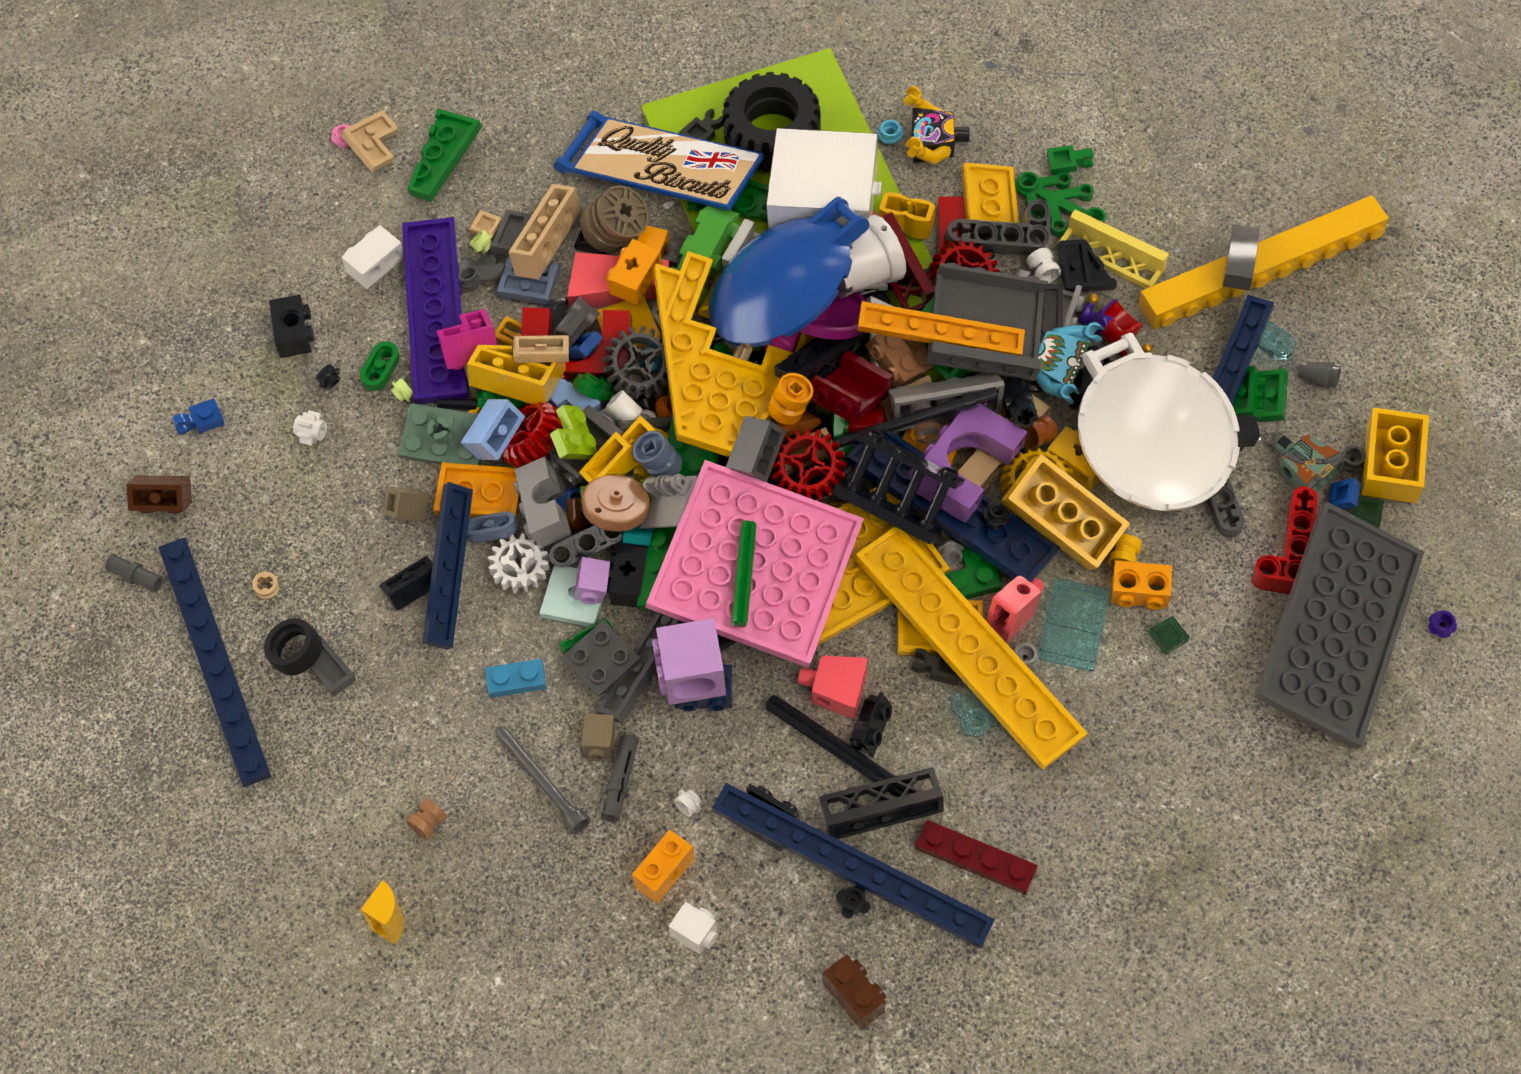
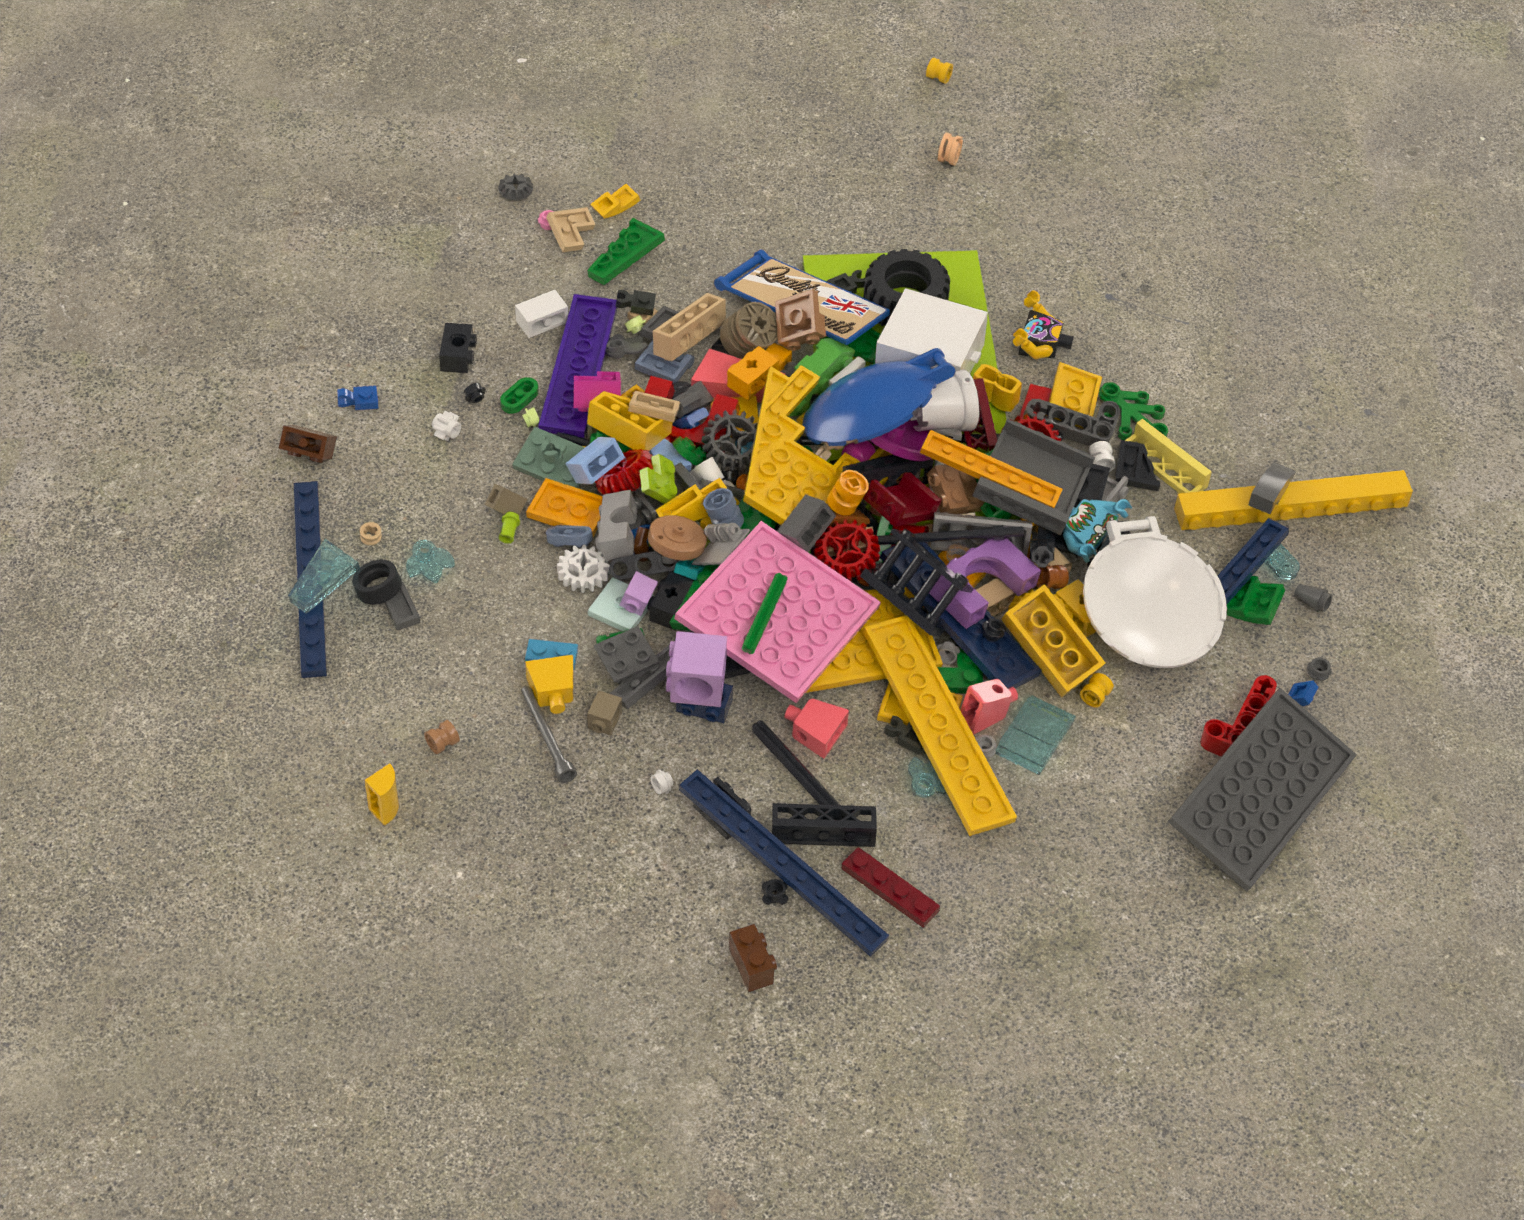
camera: 10 degrees right, 10 degrees down
(133, 573) = (267, 496): dark grey pin -> none
(229, 658) = (322, 576): none -> clear light blue wing
(286, 111) = (509, 192): none -> dark grey gear
(343, 605) = (428, 563): none -> clear light blue plate
(408, 584) = (490, 562): black slope -> none
(410, 96) = (611, 205): none -> yellow slope
(419, 534) = (510, 523): none -> lime pin
(447, 566) = (523, 554): dark blue plate -> none
(480, 214) = (639, 301): none -> pearl dark grey plate
(528, 714) = (551, 681): none -> yellow torso
(617, 789) = (607, 756): dark grey pin -> none
(663, 866) = (624, 822): light orange brick -> none
(668, 194) = (799, 320): none -> medium nougat plate
(694, 928) = (634, 875): white brick -> none
(876, 713) = (840, 759): black hinge -> none
(893, 127) = (1006, 325): medium azure plate -> none
(1066, 159) = (1150, 381): green plate -> none
(1114, 320) = (1146, 507): piece -> none
(1141, 577) = (1102, 717): light orange brick -> none
(1169, 635) = (1113, 763): clear green tile -> none
(1219, 512) = (1190, 680): dark grey beam -> none
(1250, 432) = (1235, 625): black piece -> none
(1308, 462) = (1280, 661): torso -> none
(1369, 510) = (1321, 711): clear green tile -> none
(1395, 455) = (1355, 673): yellow brick -> none
(1445, 618) = (1357, 810): dark purple plate -> none

